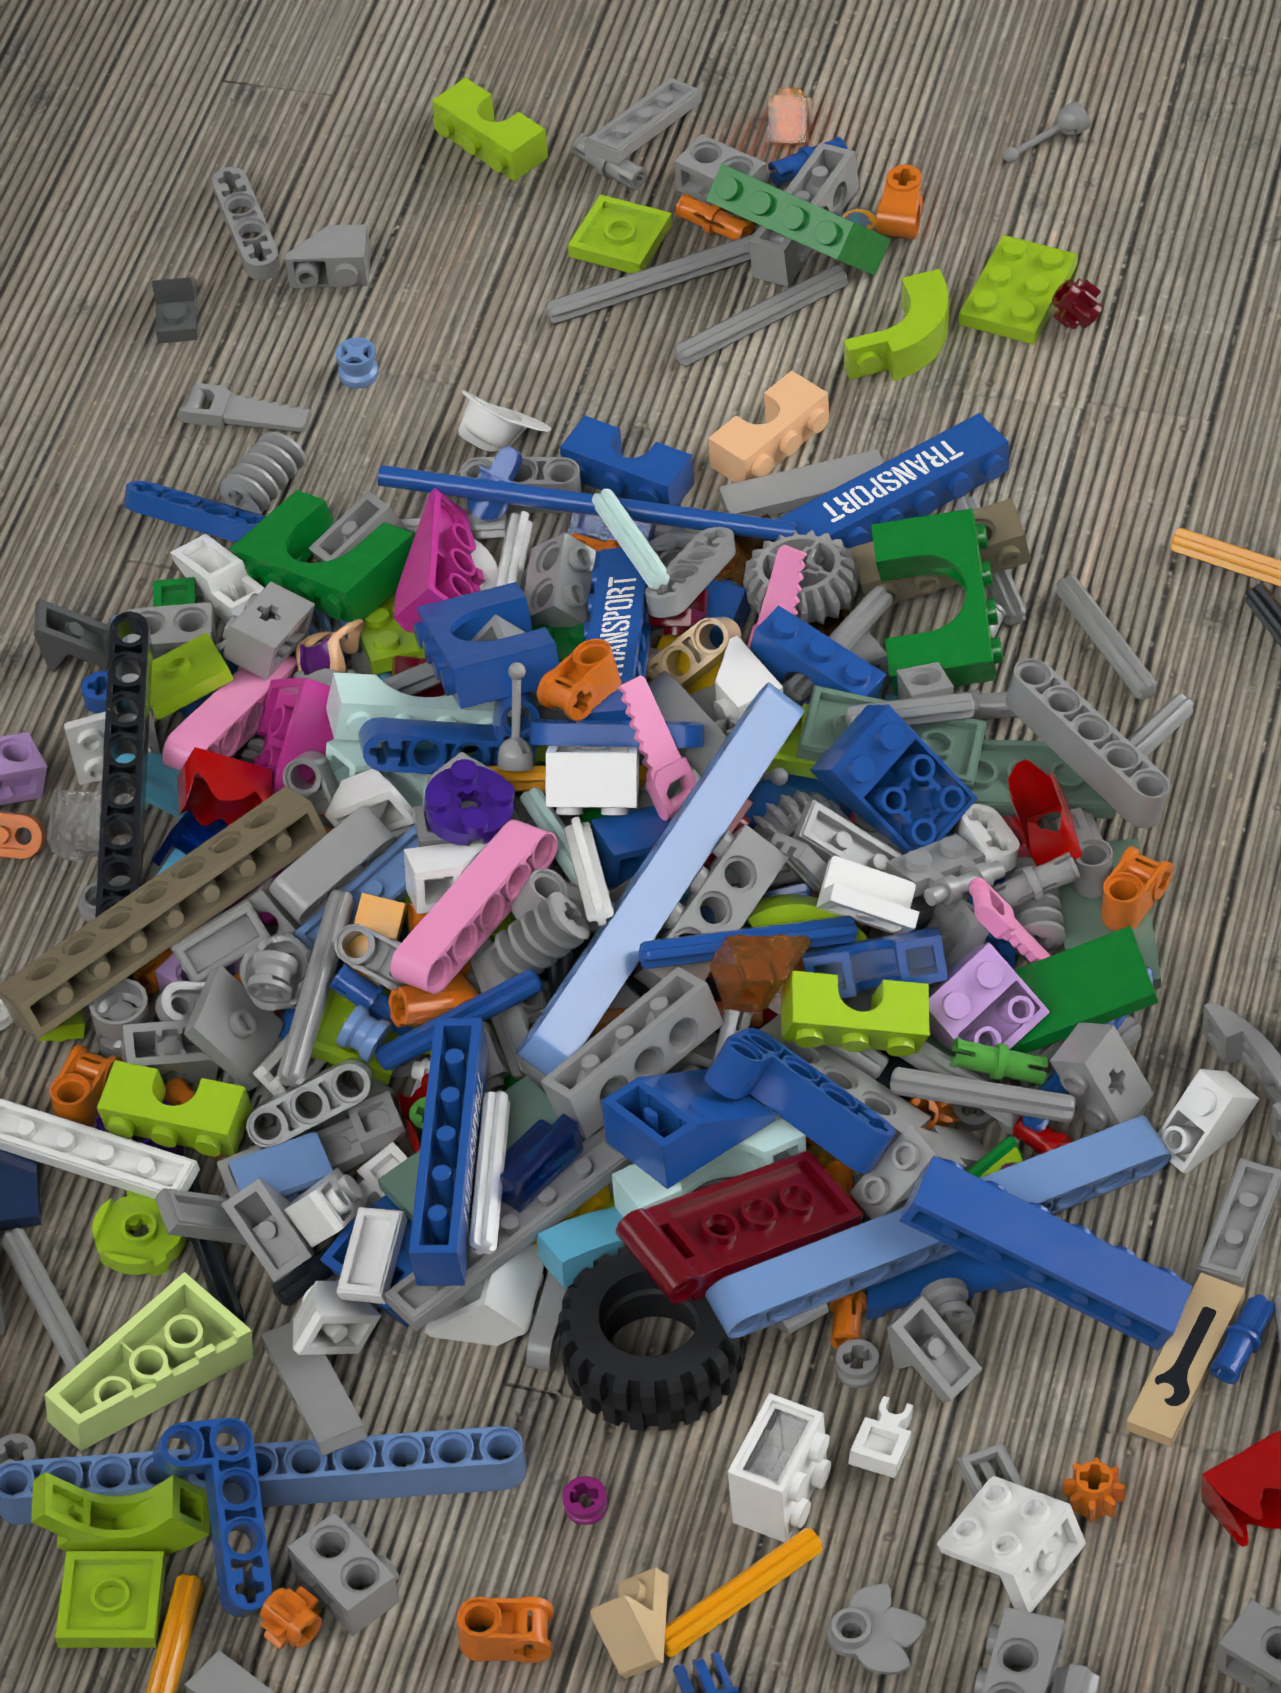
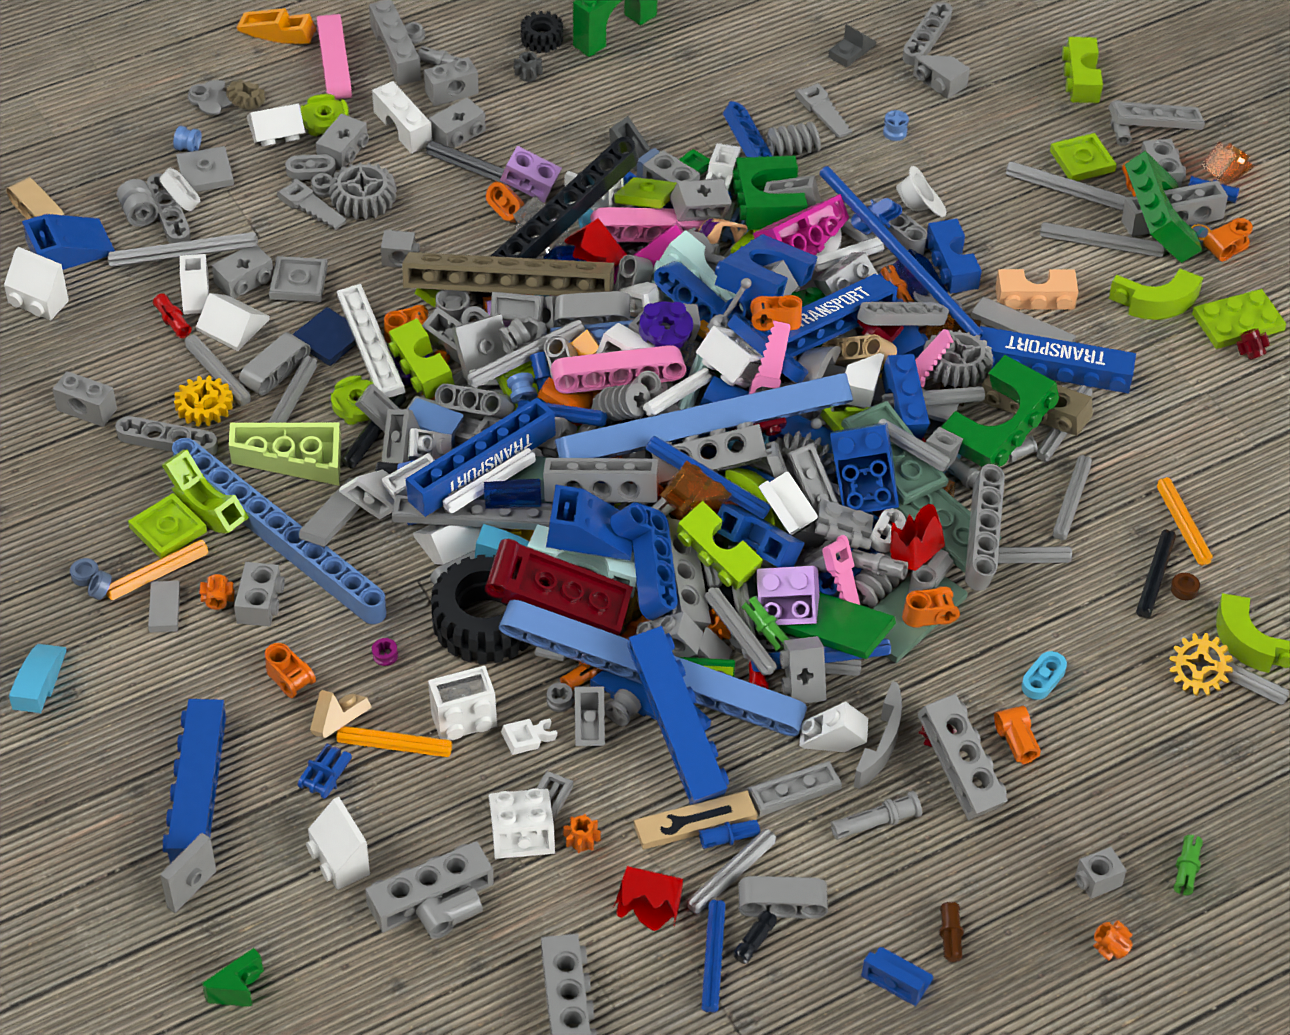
camera: 40 degrees right, 0 degrees up
(225, 1516) = (233, 528): blue beam -> none
(630, 539) = (888, 276): light aqua axle -> none
(882, 1631) = (428, 808): light grey plate -> none

